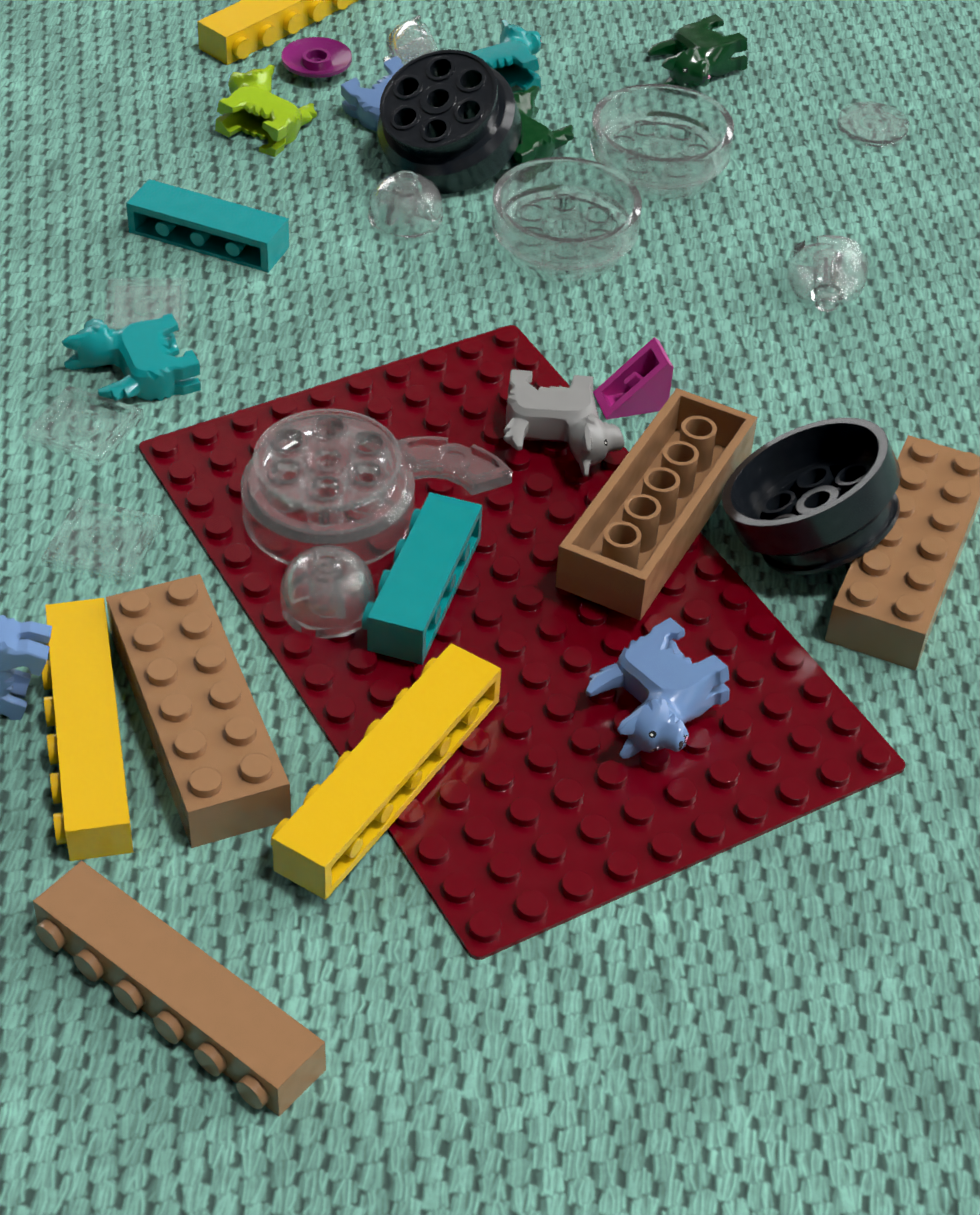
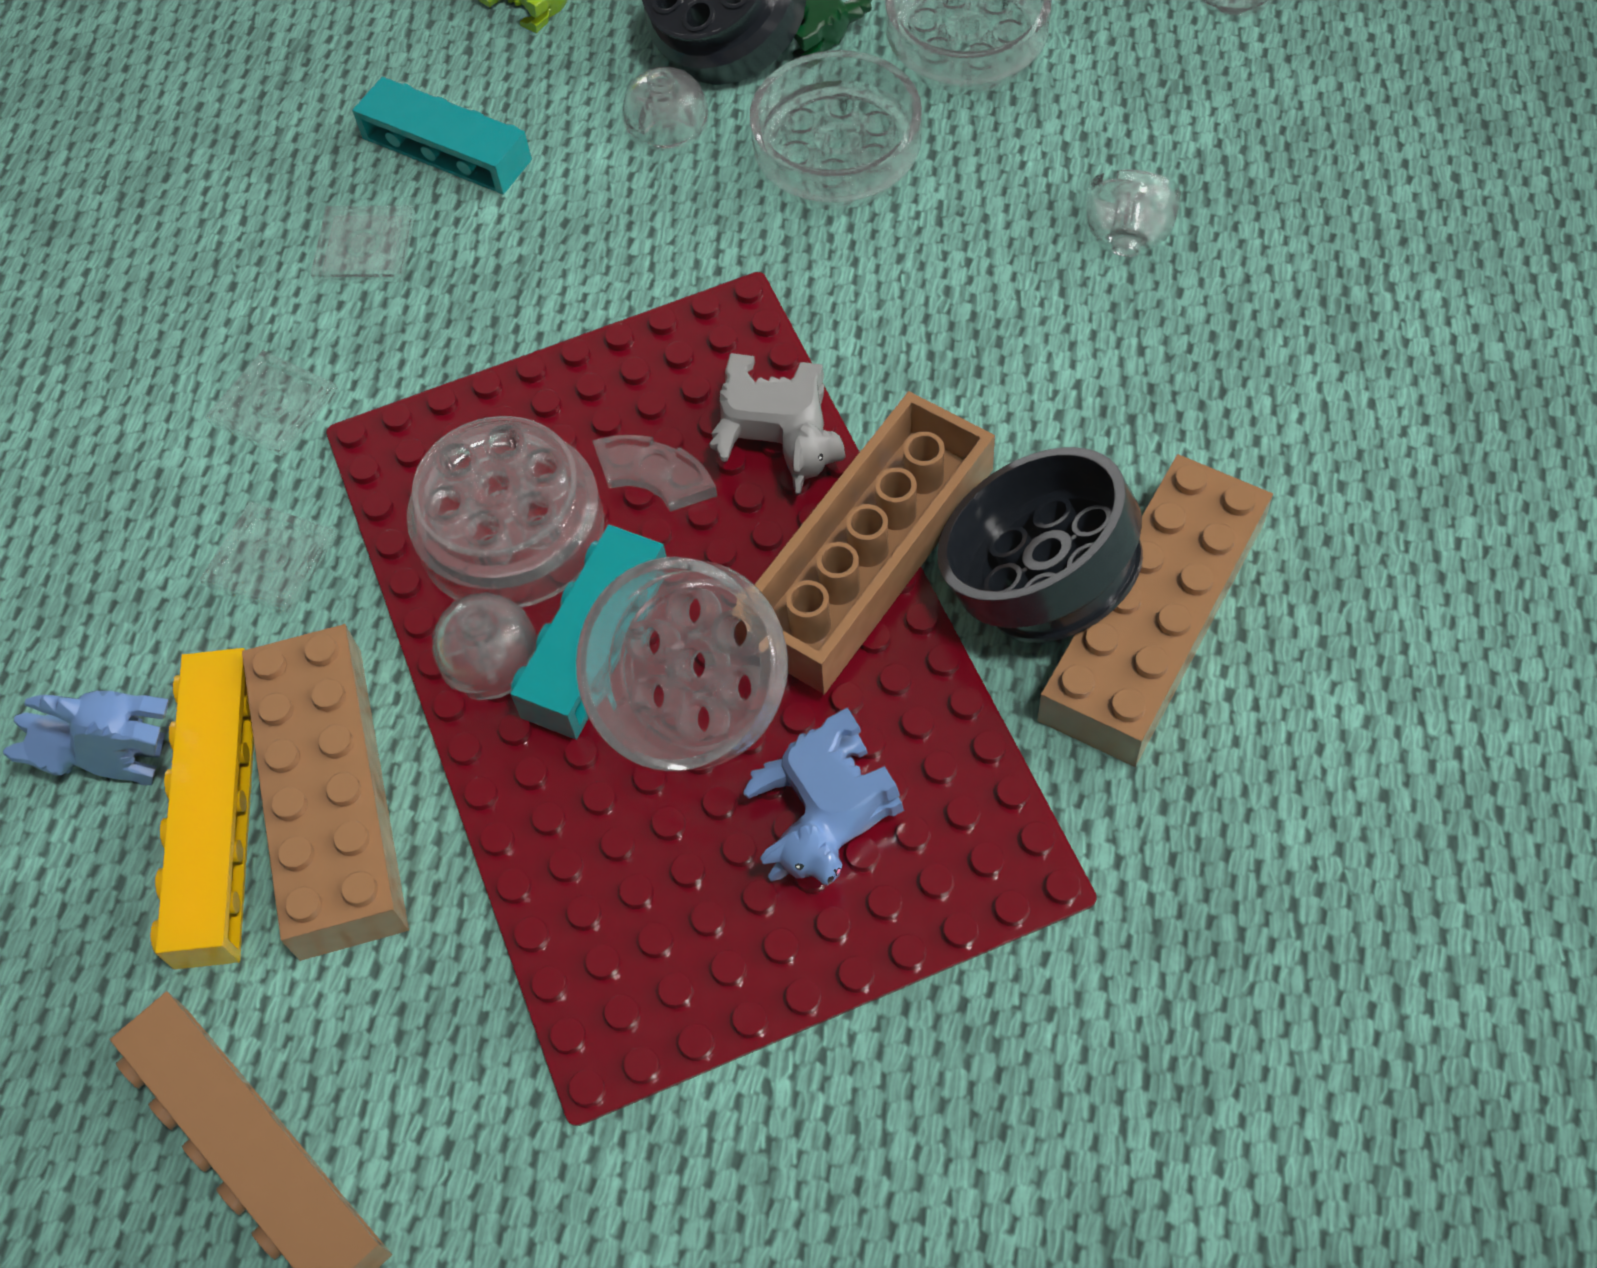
camera: 15 degrees right, 15 degrees up
(142, 352) = (344, 313): teal animal -> none
(384, 771) = (505, 888): yellow brick -> none
(489, 535) = (621, 672): none -> clear wheel
(638, 385) = (880, 365): dark pink slope -> none

